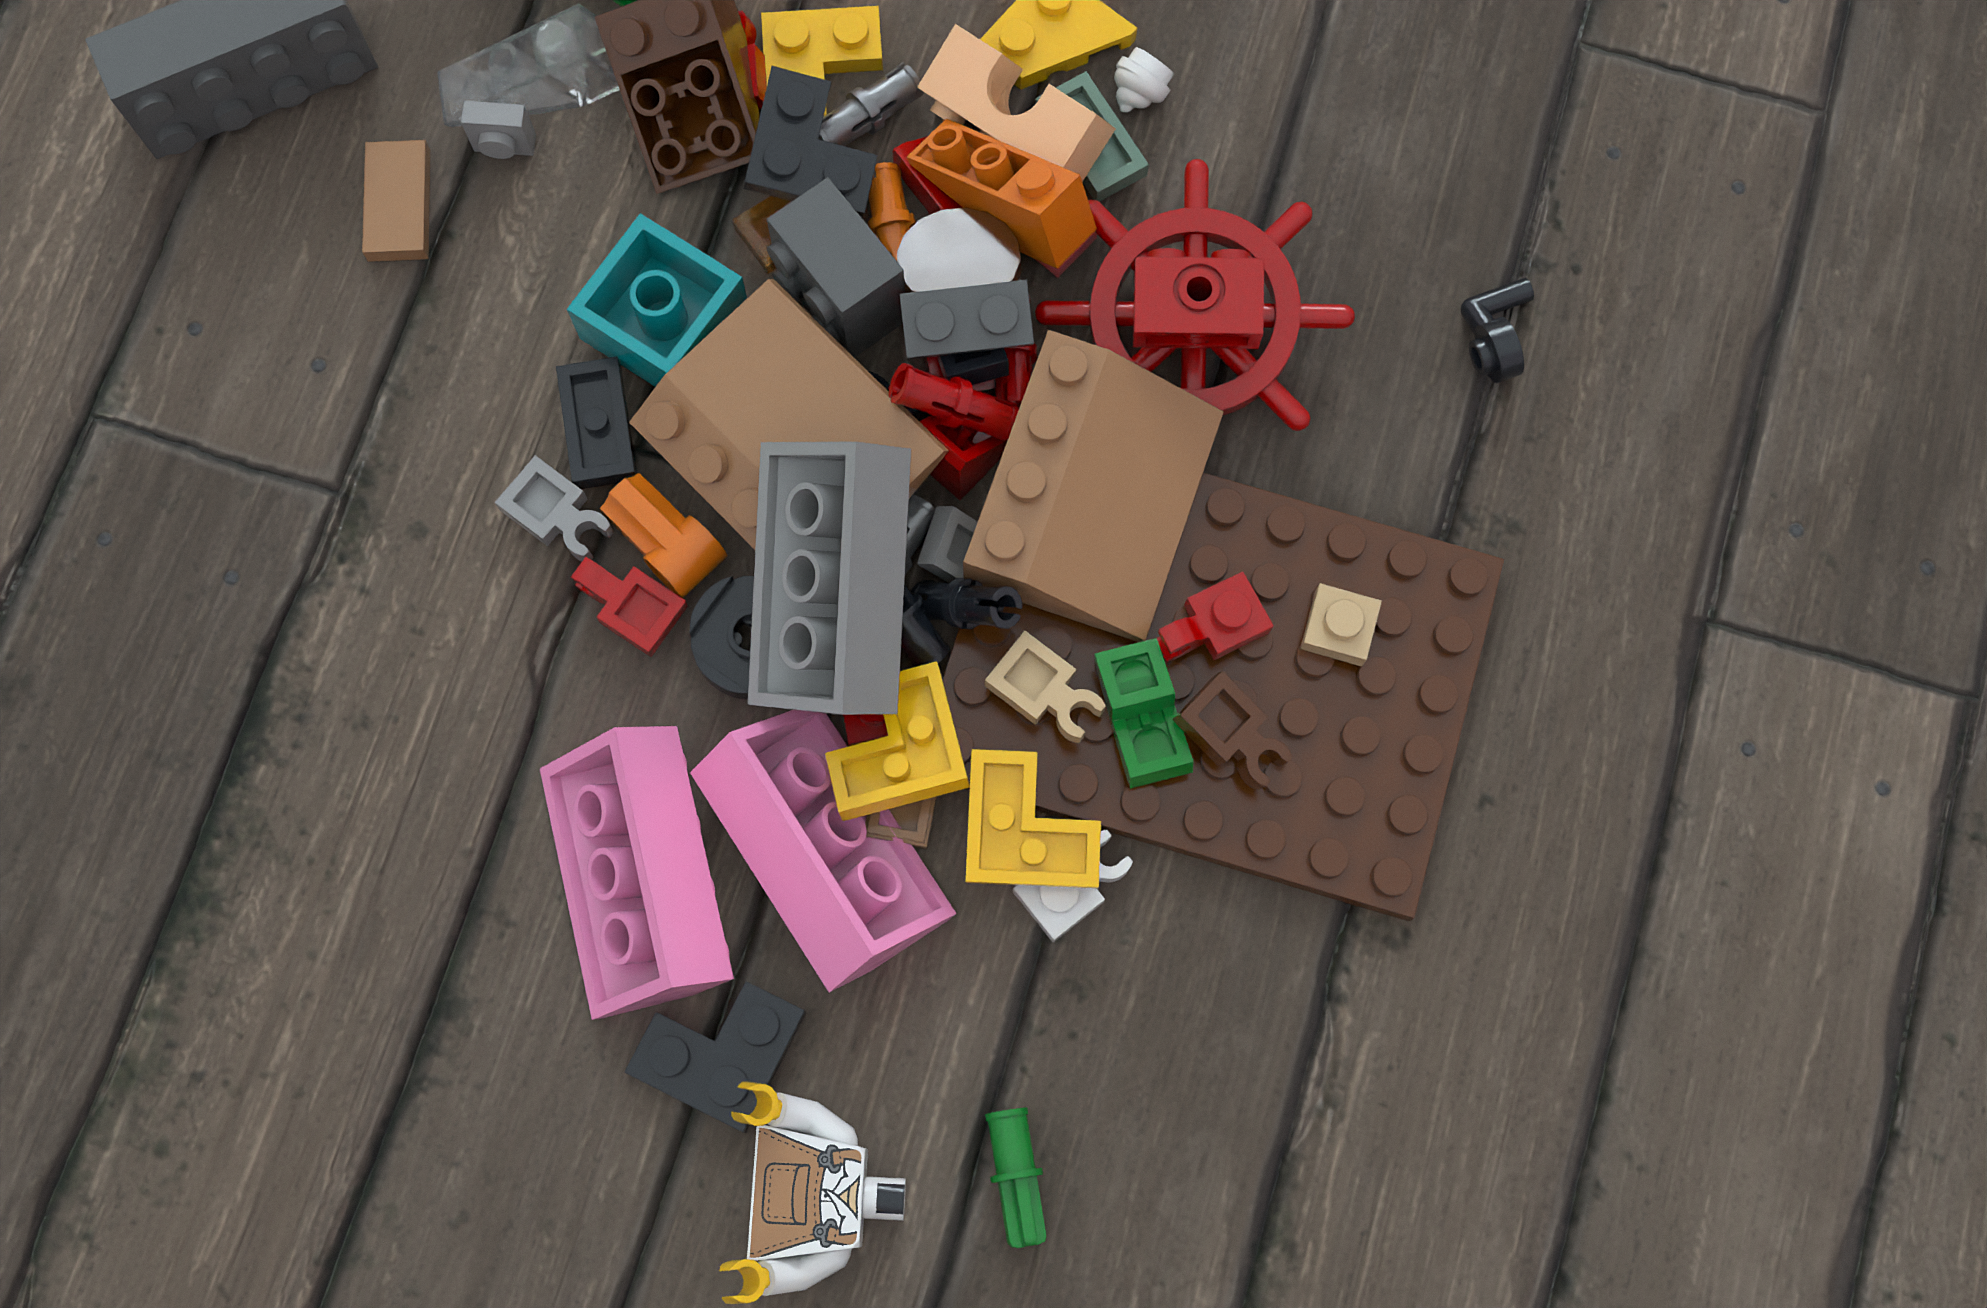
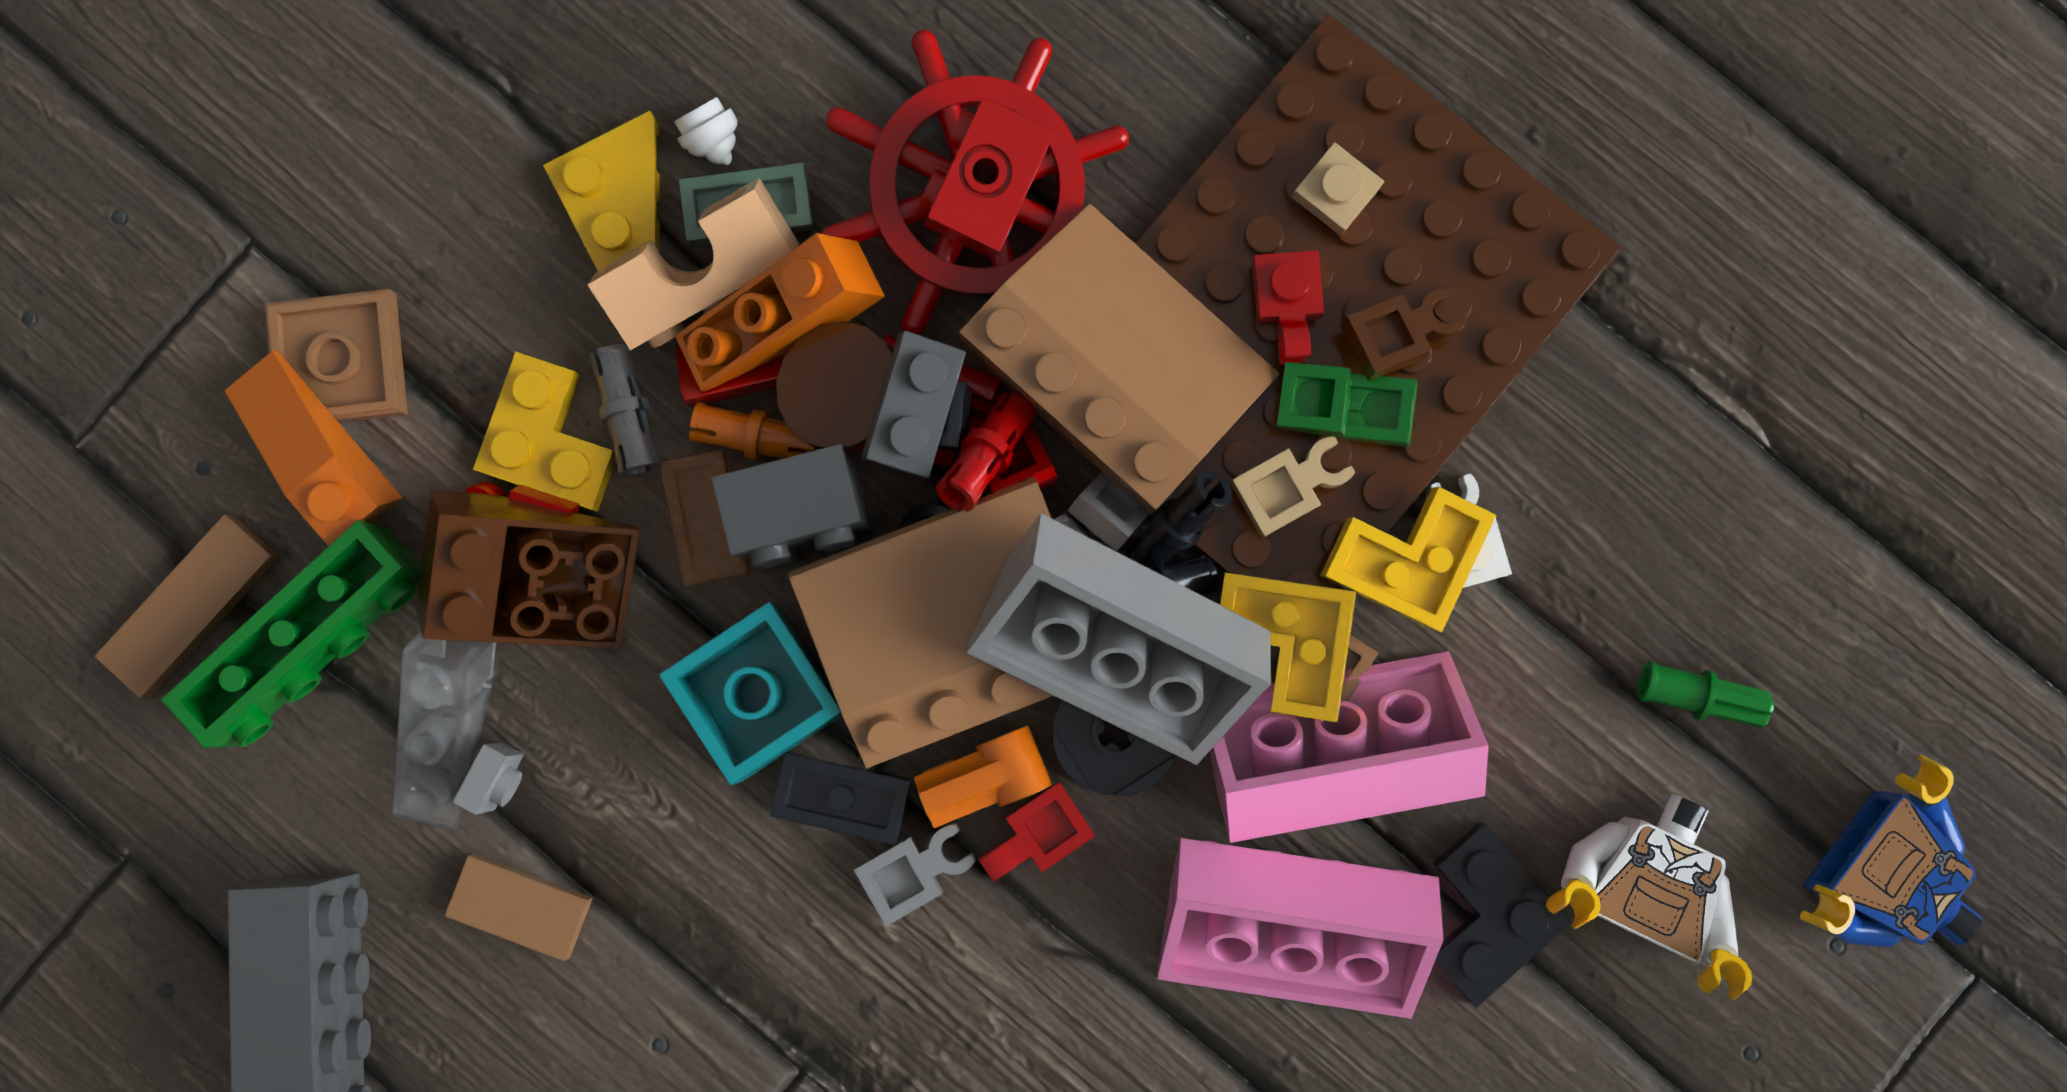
camera: 60 degrees left, 10 degrees up
(786, 147) = (655, 503): black plate -> none

